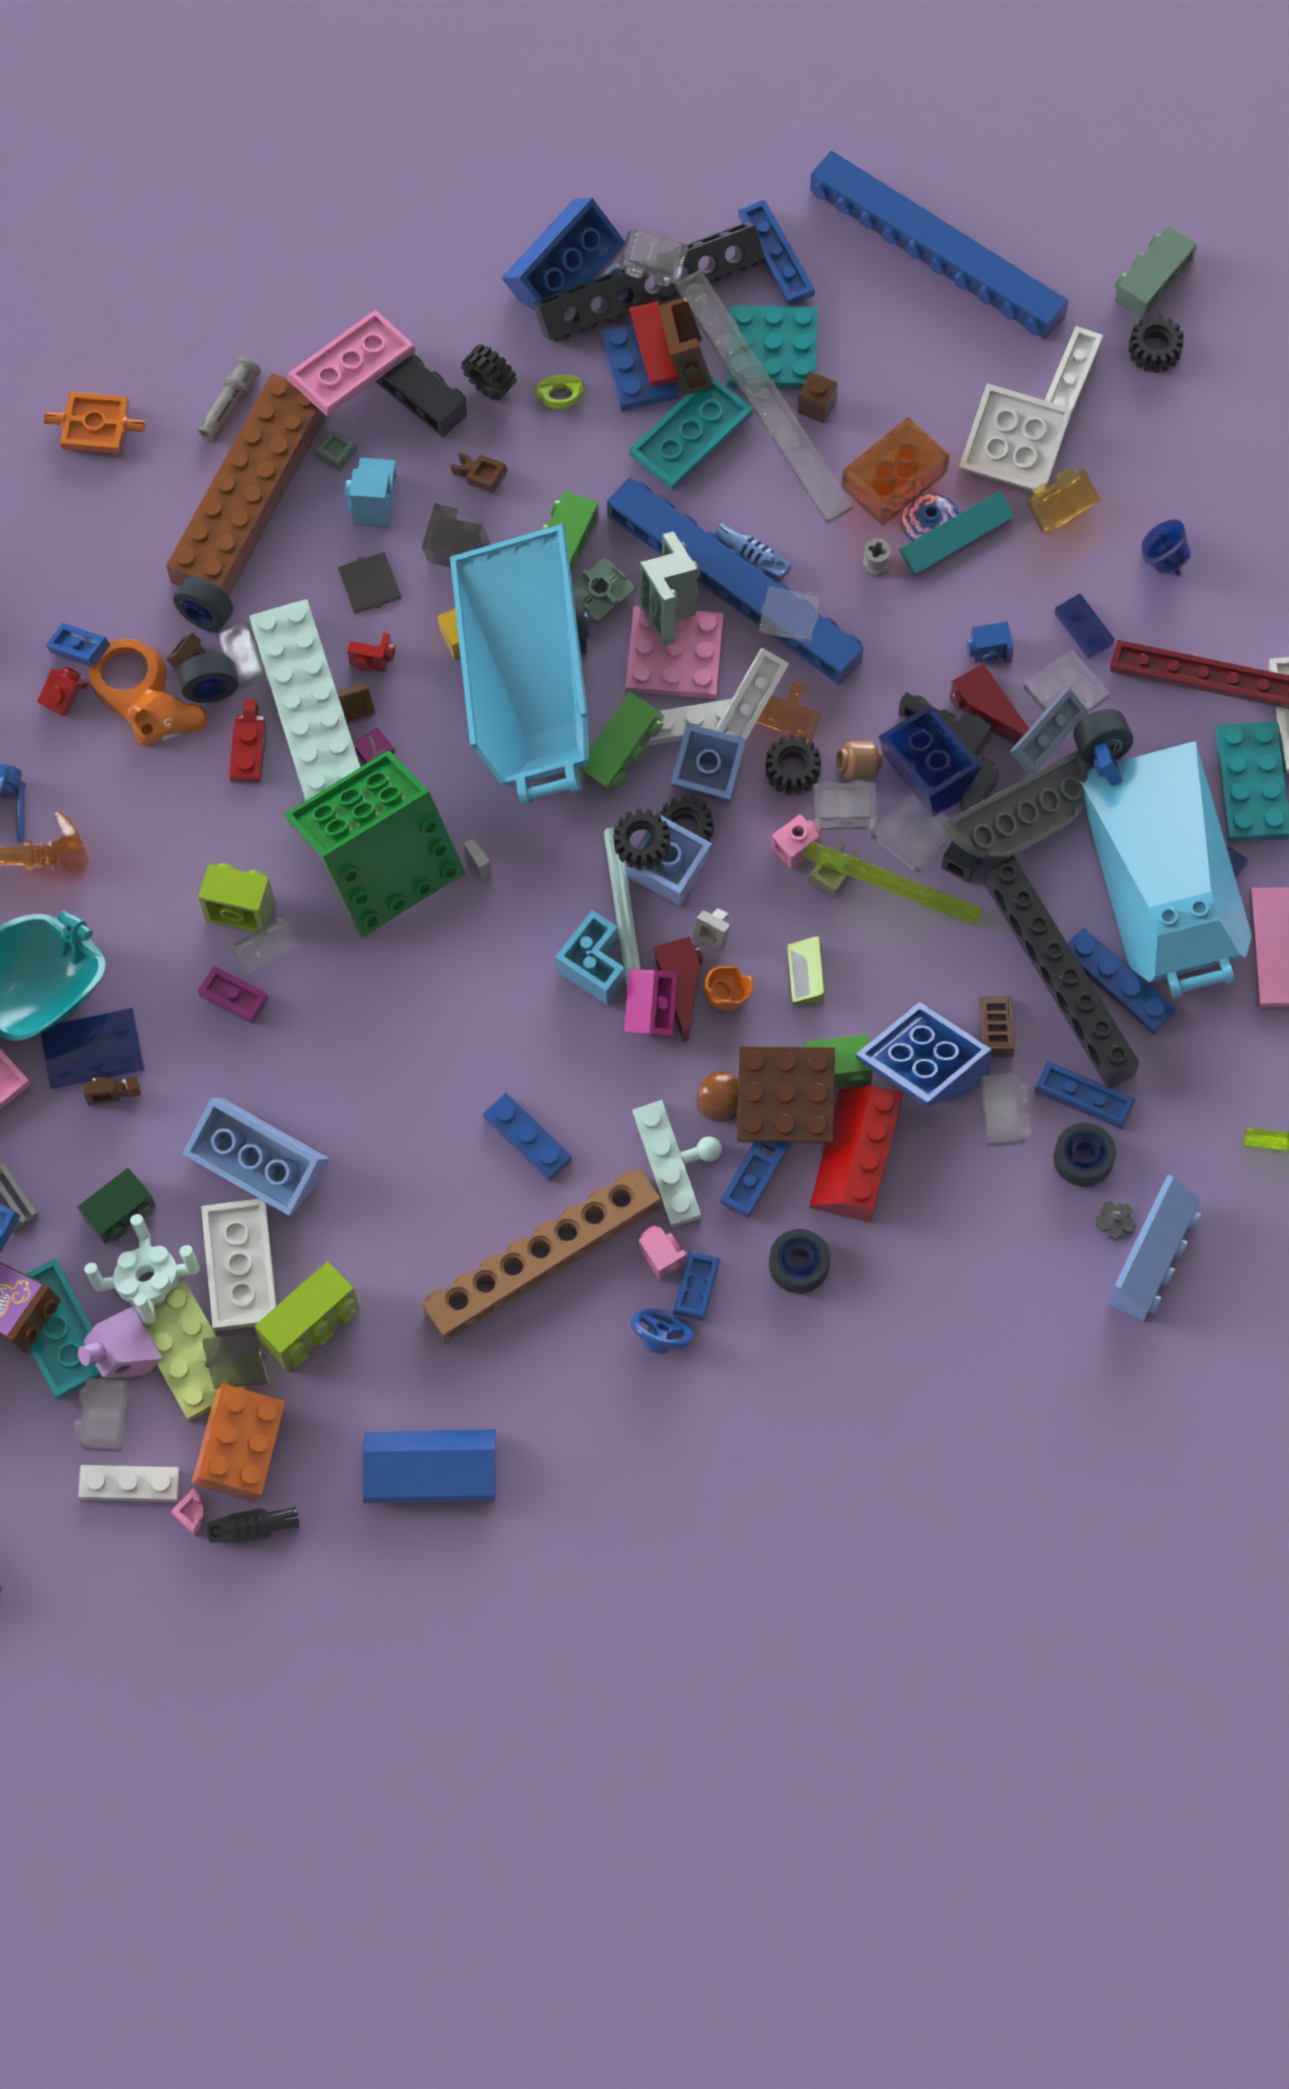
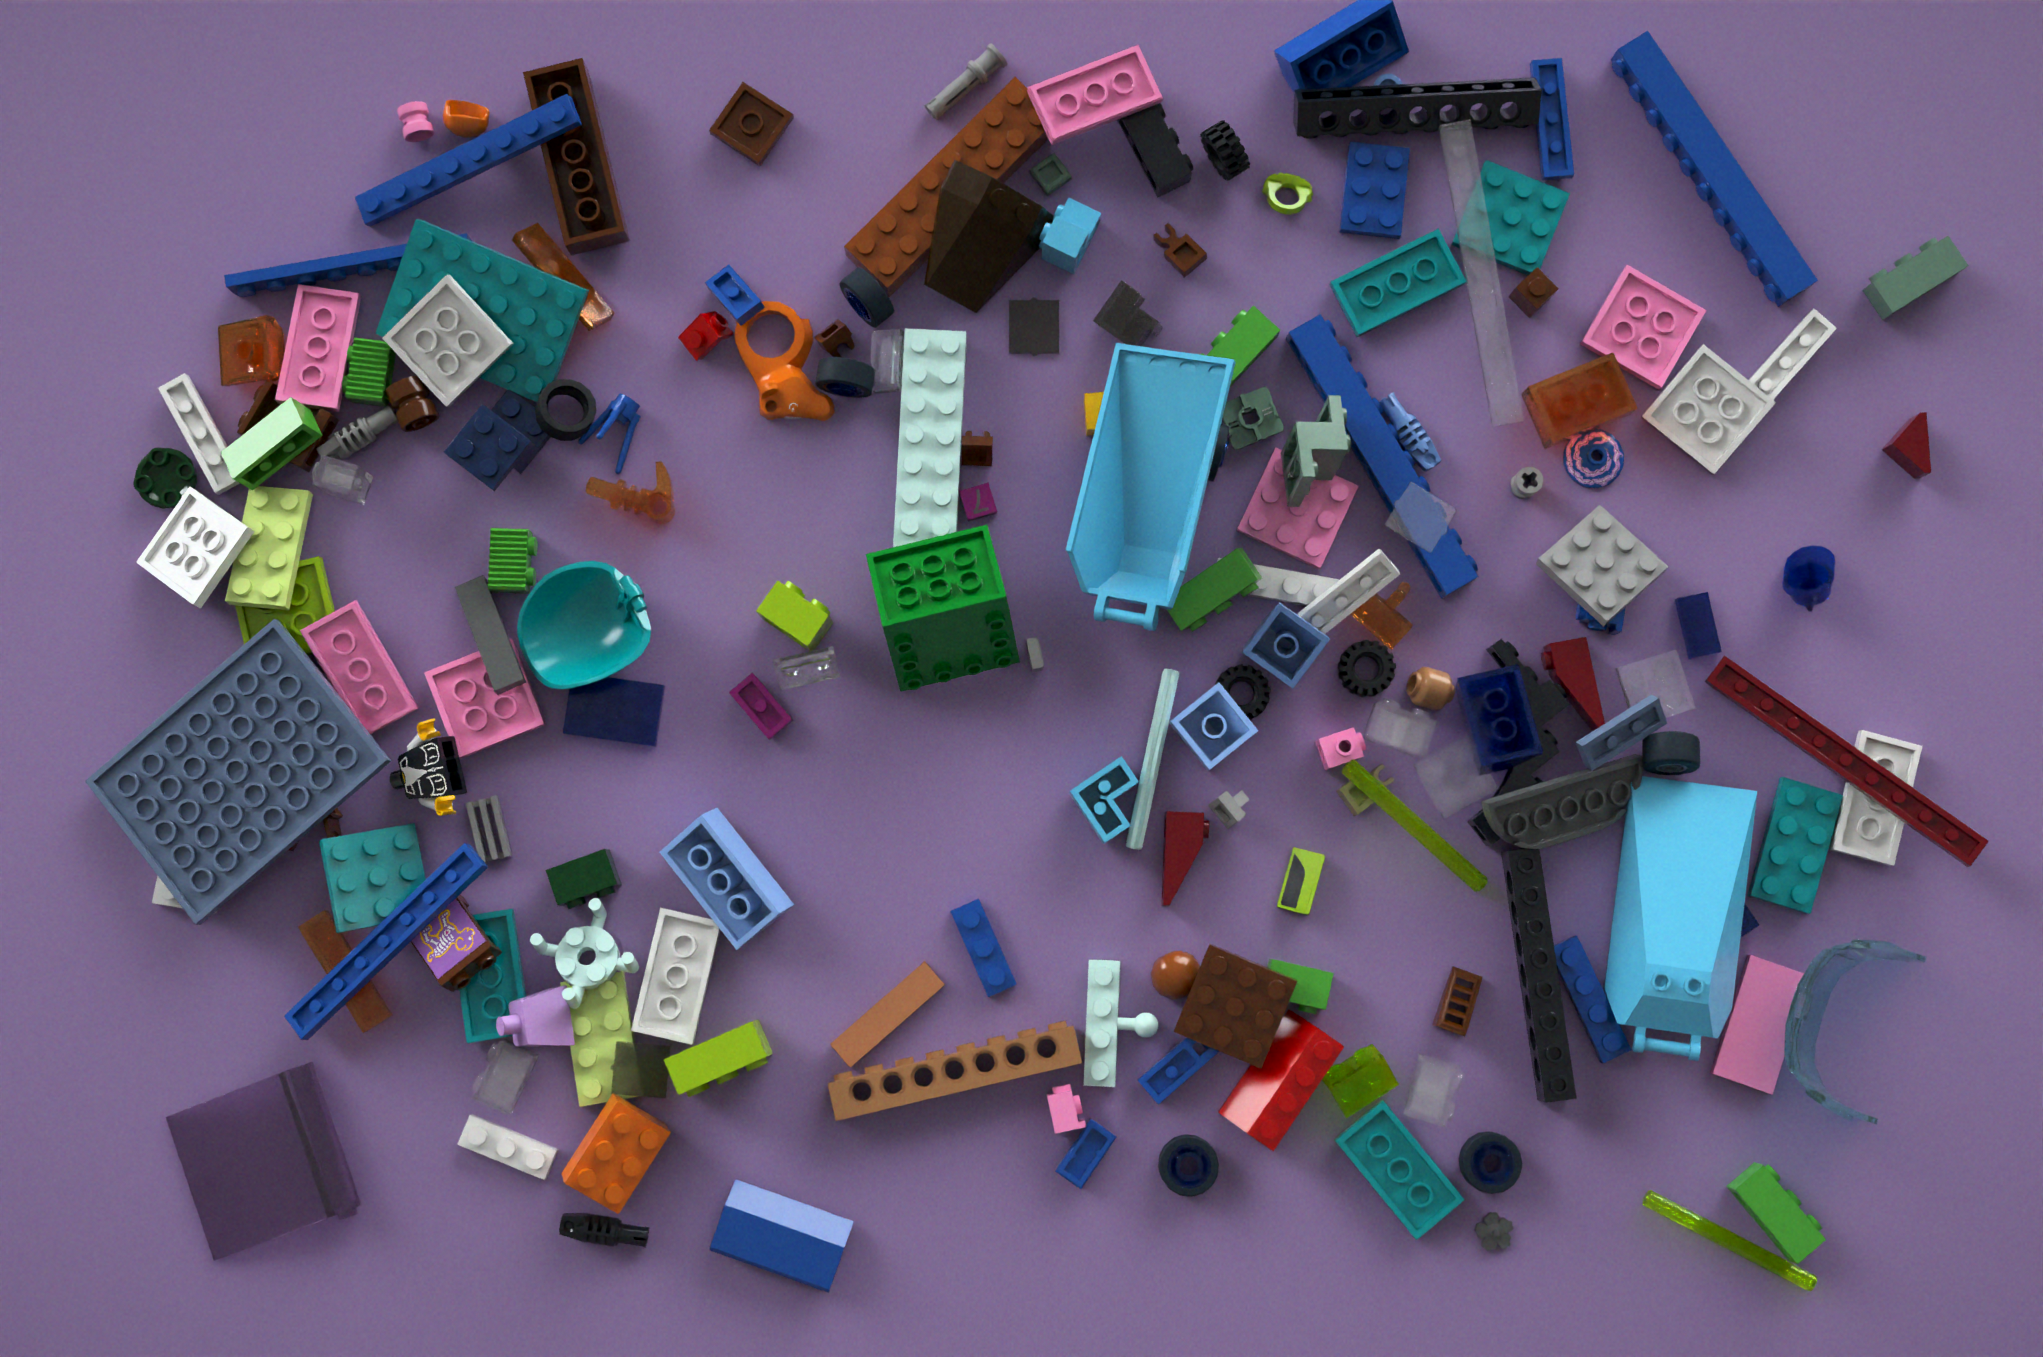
camera: 15 degrees right, 15 degrees up
(41, 498) = (751, 124): none -> reddish brown plate
(94, 422) = (829, 61): orange plate -> none
(107, 1090) = (609, 757): reddish brown plate -> none
(190, 1512) = (553, 1195): bright pink tile -> none
(248, 744) = (861, 454): red hinge -> none
(290, 514) = (980, 236): none -> dark brown wedge
(372, 657) = (1003, 408): red bracket -> none
(457, 1229) = (887, 1014): none -> nougat tile
(641, 857) = (1201, 688): black tyre -> none
(650, 1002) = (1143, 866): dark pink brick -> none
(653, 257) = (1428, 92): clear brick -> none
(653, 344) = (1395, 178): red tile -> none
(660, 1334) = (1035, 1189): blue piece -> none
(683, 345) = (1422, 217): reddish brown panel -> none
(727, 988) = (1221, 874): orange hair -> none
(927, 1056) = (1379, 1017): blue slope -> none
(931, 391) = (1643, 326): none -> bright pink plate
(932, 1129) = (1359, 1080): none -> clear neon green bracket
(956, 533) = (1613, 484): teal tile -> none
(972, 600) = (1601, 565): none -> light grey plate
(1001, 1193) = (1399, 1169): none -> teal plate
(1063, 499) = (1729, 490): clear yellow brick -> none
(1084, 1095) = (1513, 1100): blue tile -> none
(1107, 764) = (1664, 785): blue plate -> none
(1155, 1249) = (1518, 1281): light blue slope -> none
(1159, 329) = (1897, 342): black tyre -> none
(1212, 411) = (1911, 447): none -> dark red slope

